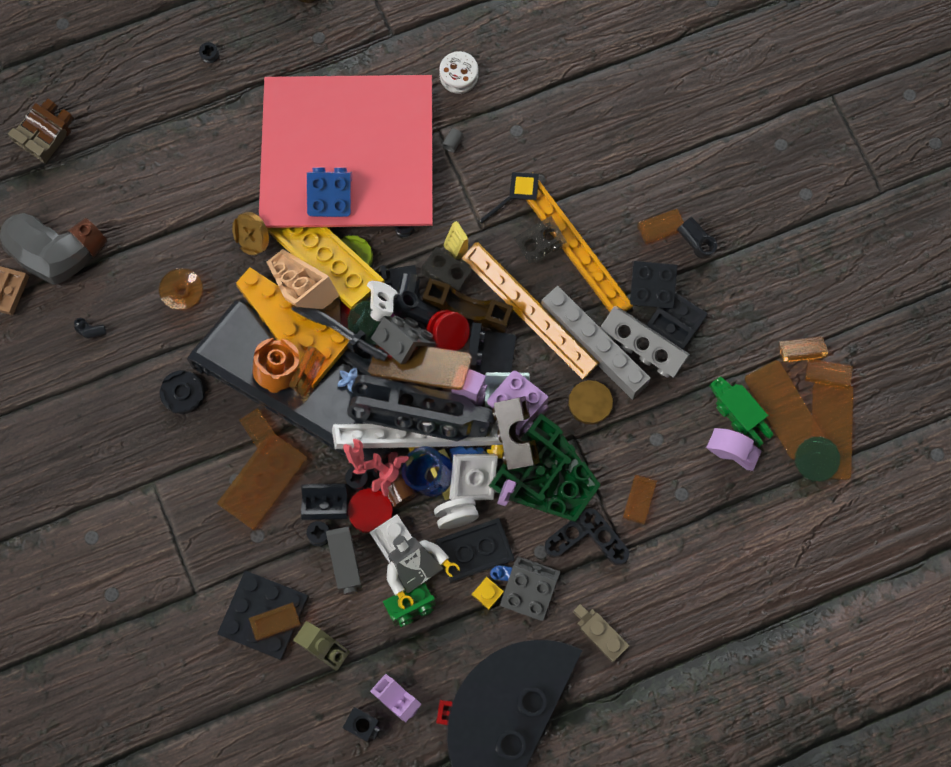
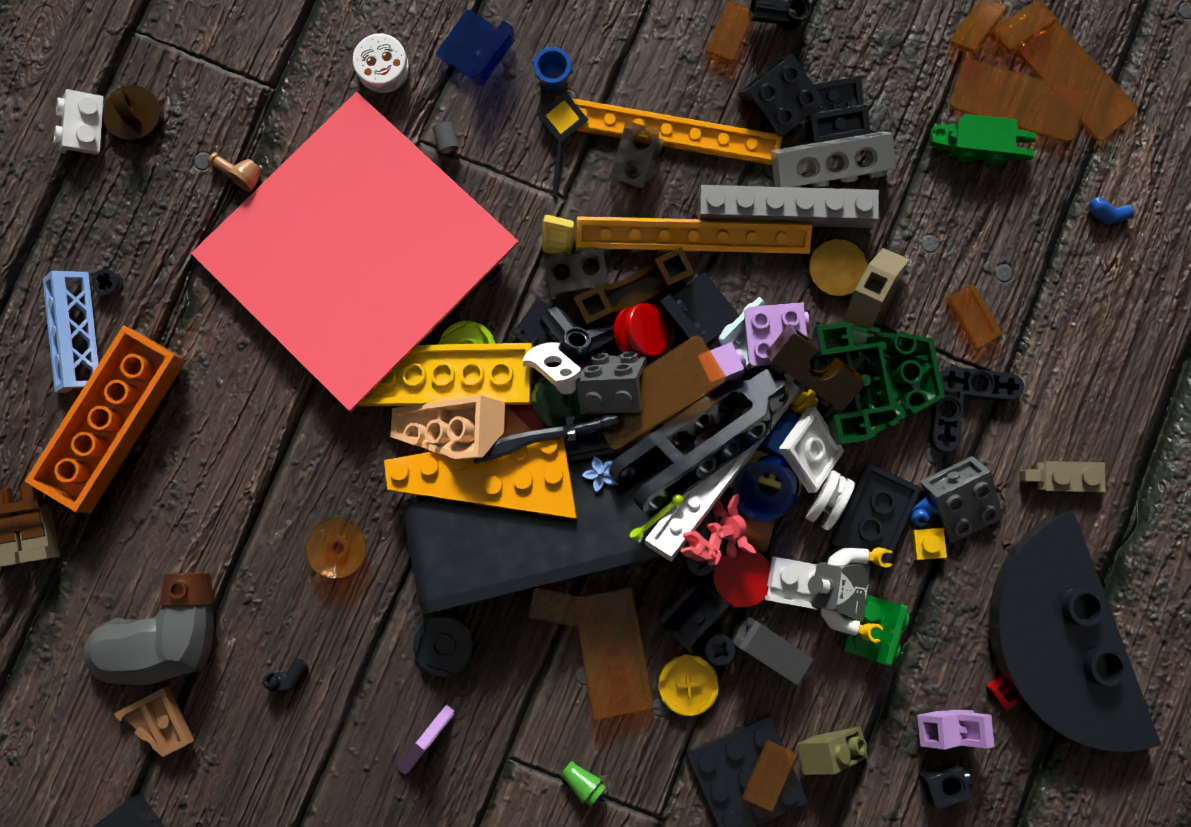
camera: 45 degrees left, 10 degrees up
(122, 427) = (425, 740): none -> lavender tile
(137, 117) = (105, 421): none -> orange brick
(159, 56) = (59, 328): none -> light blue fence
(177, 532) = (583, 783): none -> bright green cone
(250, 233) = (347, 425): pearl gold tile -> none
(275, 364) = (506, 527): orange brick -> none
(283, 537) = (688, 685): none -> yellow tile
(307, 371) = (559, 511): clear orange tile -> none
(329, 192) = (385, 308): blue bracket -> none
(331, 63) = (242, 174): none -> medium nougat bar
(370, 422) = (637, 533): none -> lime hinge
(507, 489) = (863, 434): lavender tile -> none
(517, 109) = (476, 46): none -> clear blue bracket
(543, 156) = (552, 68): none -> blue piece
(597, 430) = (875, 289): none -> dark tan slope
(734, 446) = (1013, 181): lavender brick -> none
(772, 518) = (1108, 214): none -> blue arm
(817, 459) = (1096, 118): clear green tile -> none

